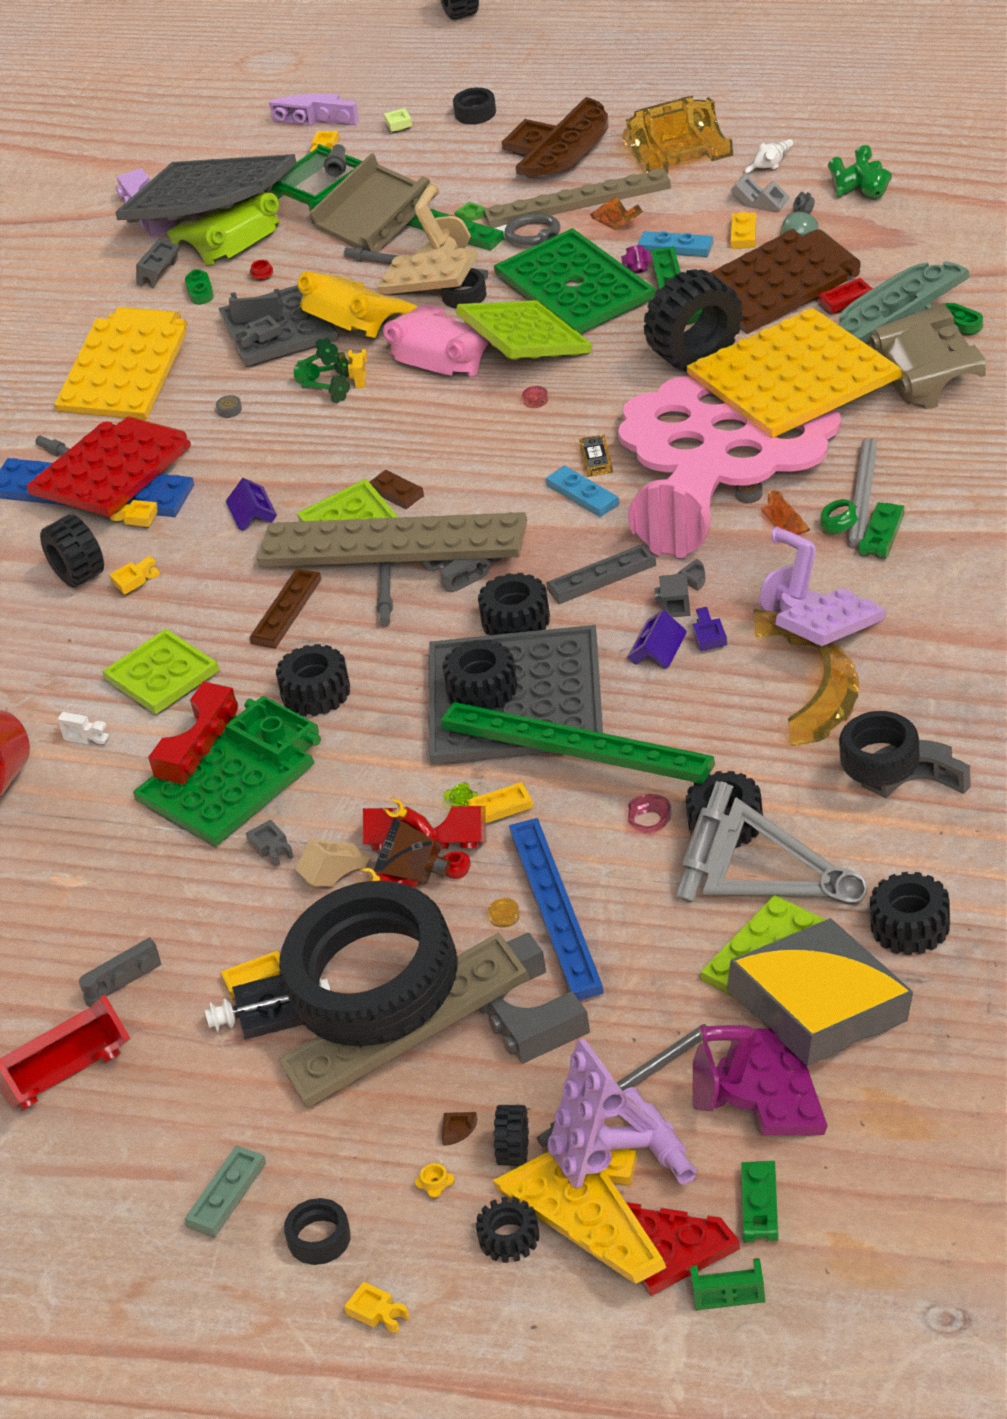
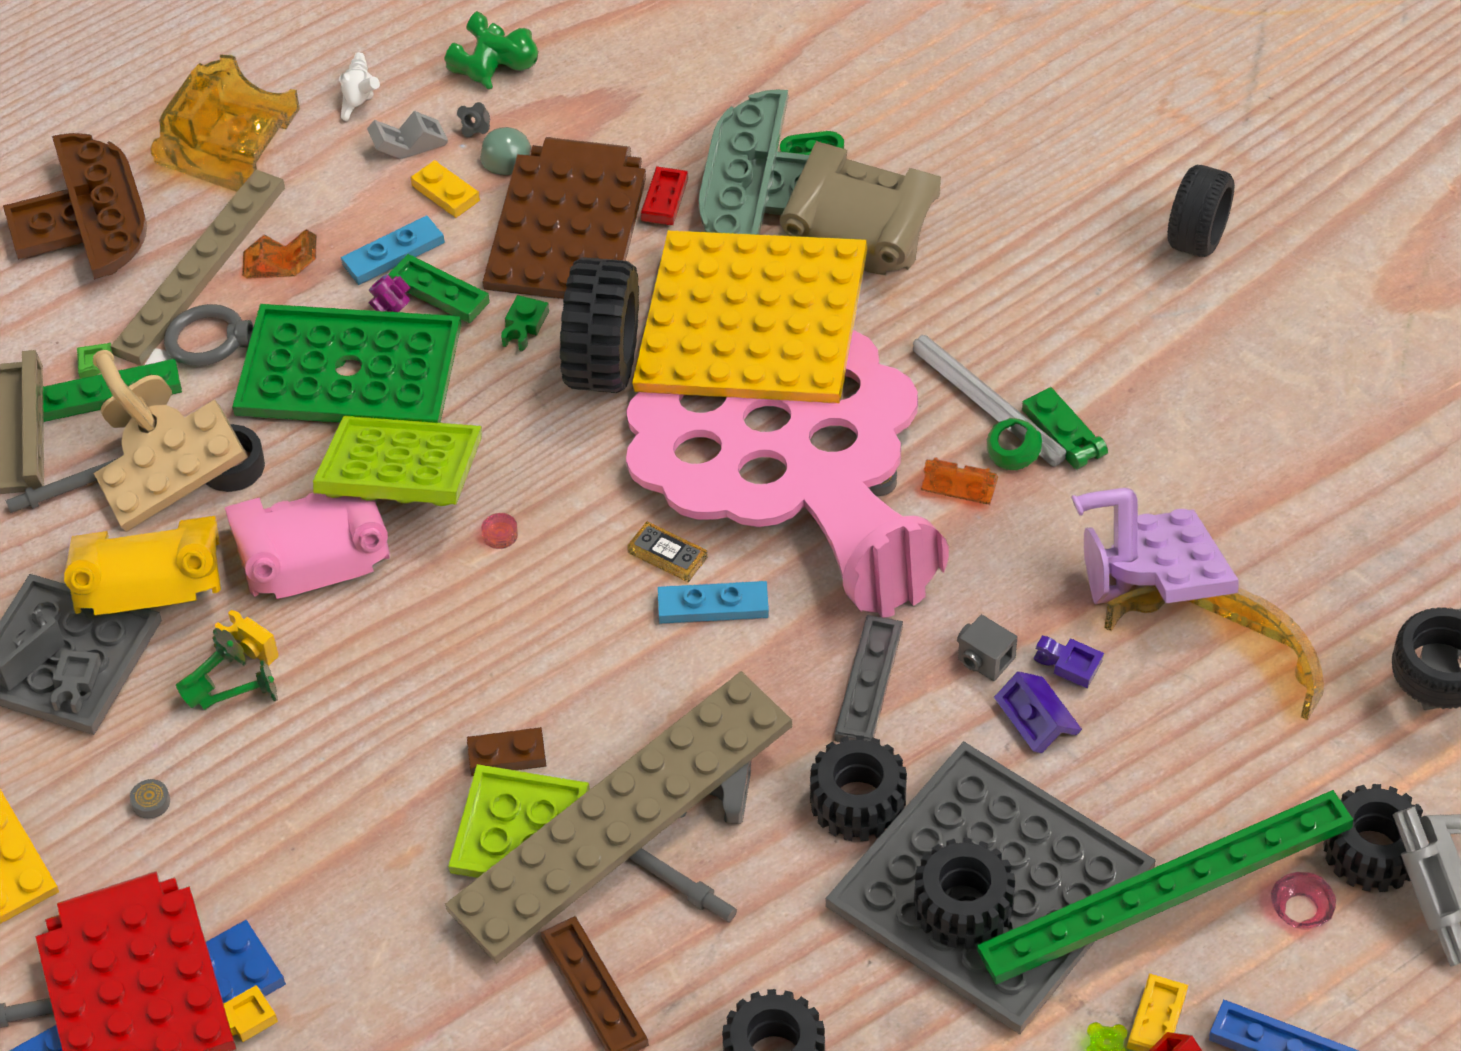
camera: 55 degrees left, 10 degrees up
(248, 501) = (368, 901): dark purple panel -> none
(695, 574) = (959, 610): dark grey tile -> none

